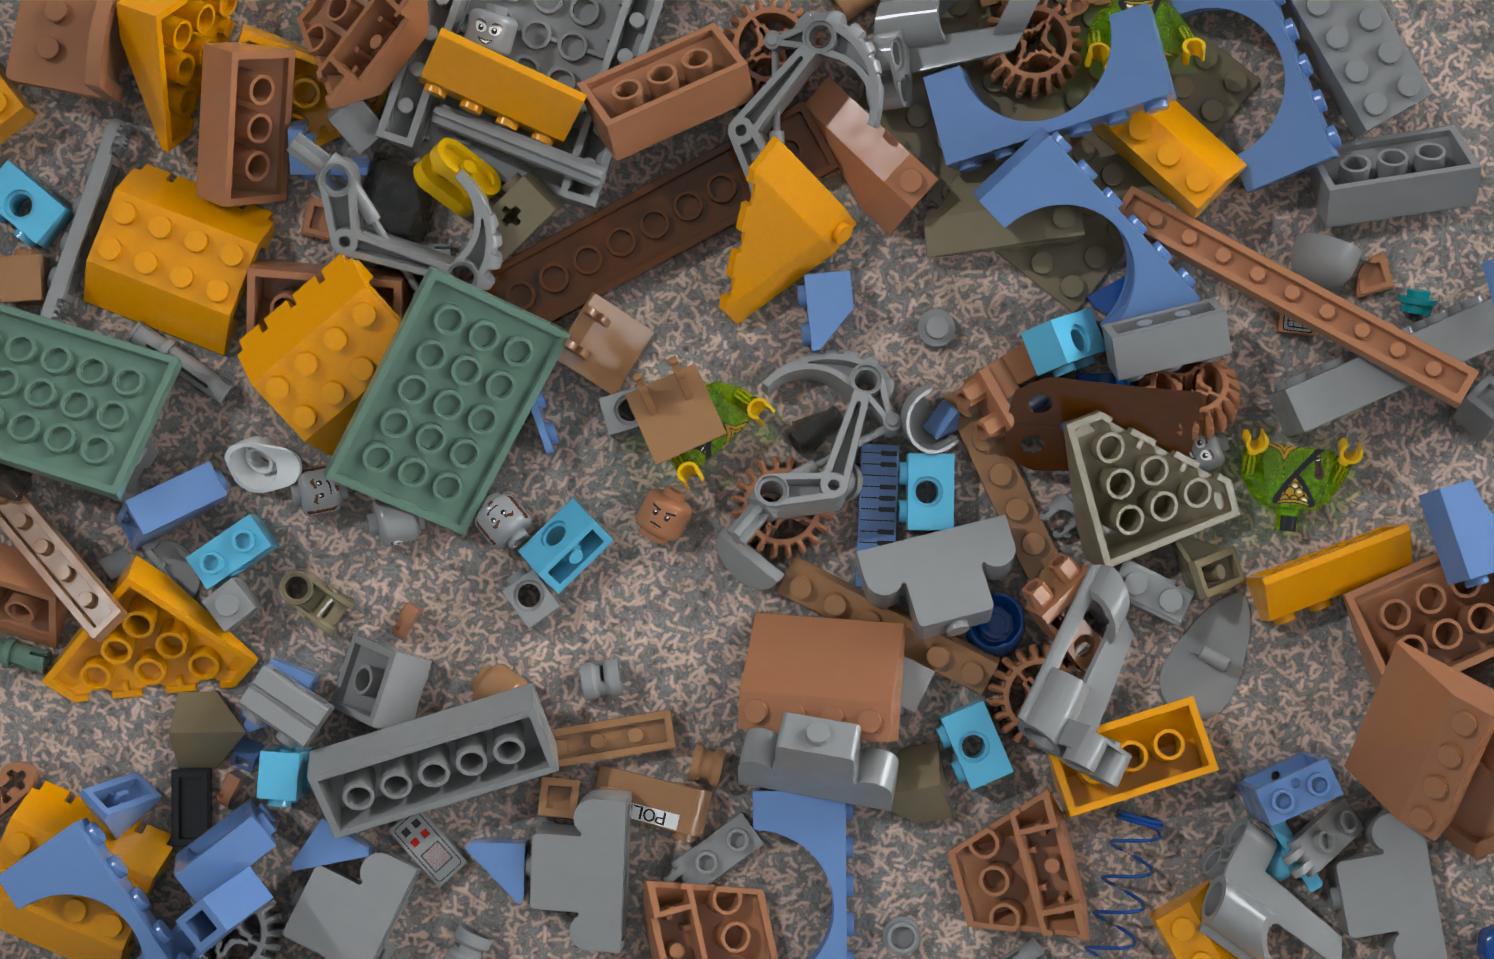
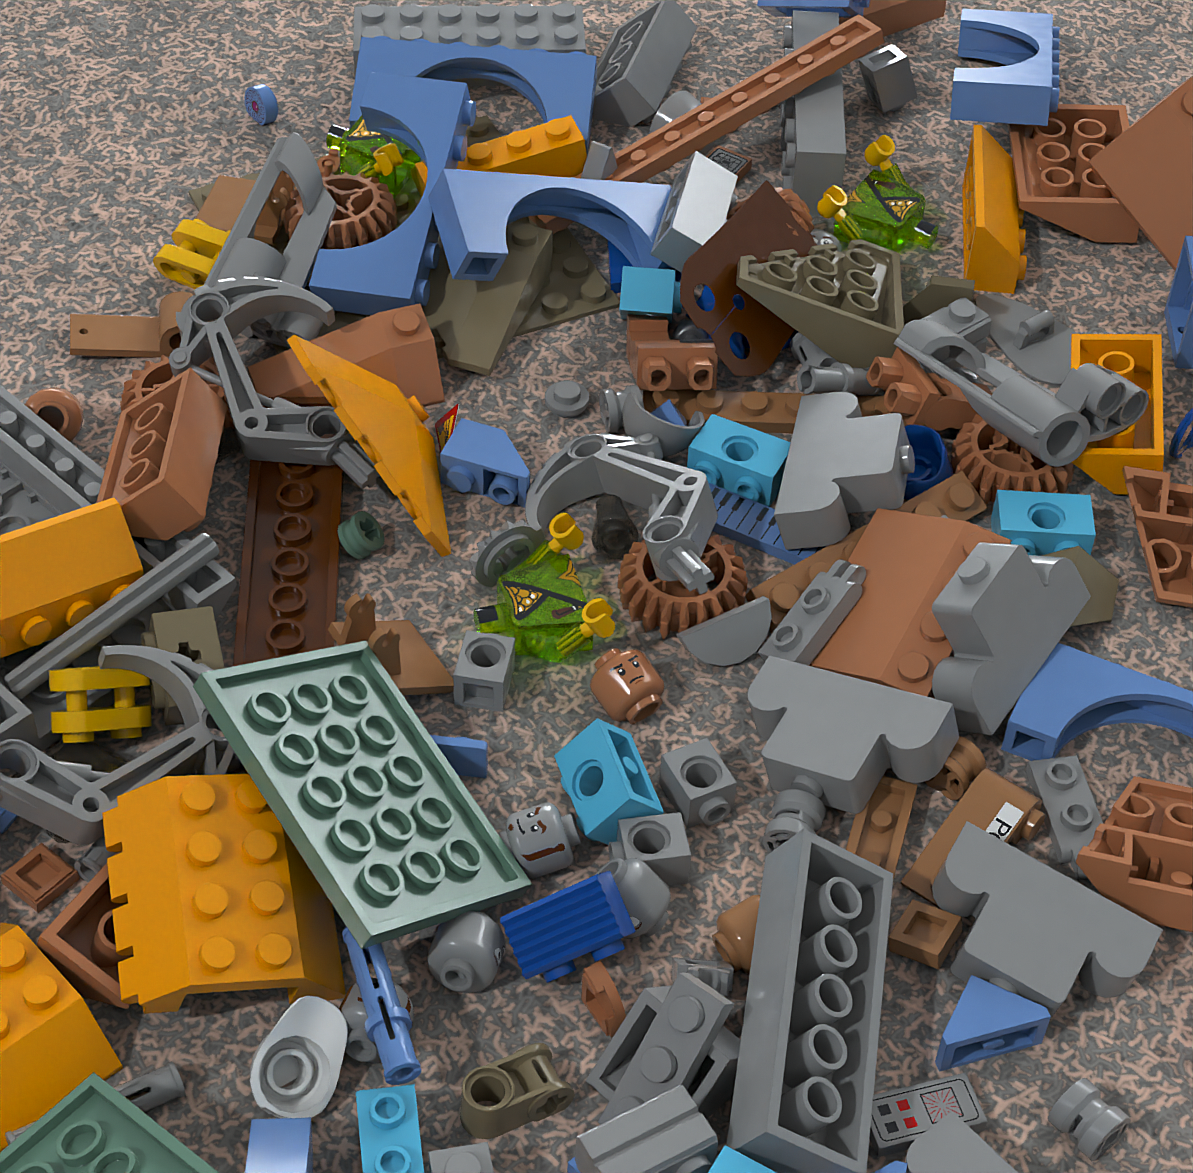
camera: 60 degrees left, 40 degrees down
(298, 510) = (397, 1054): none -> medium blue pin
(360, 686) = (672, 1044): none -> light grey plate
(432, 578) = (569, 925): none -> blue brick
(447, 675) = (711, 972): none -> light grey plate
(483, 602) = (642, 893): none -> light grey head
(602, 584) = (698, 783): none -> light grey brick
(675, 412) = (514, 601): medium nougat plate -> none
(682, 681) = (845, 732): none -> light grey brick
(715, 264) = (361, 535): none -> sand green bush
(735, 371) = (503, 551): none -> light grey gear
(787, 617) = (816, 614): none -> light grey hinge
(844, 261) = (445, 426): none -> sticker
(941, 376) = (611, 406): none -> light grey wheel
(1044, 532) = (836, 378): none -> light grey pin
(1191, 228) = (599, 162): none -> light grey piece

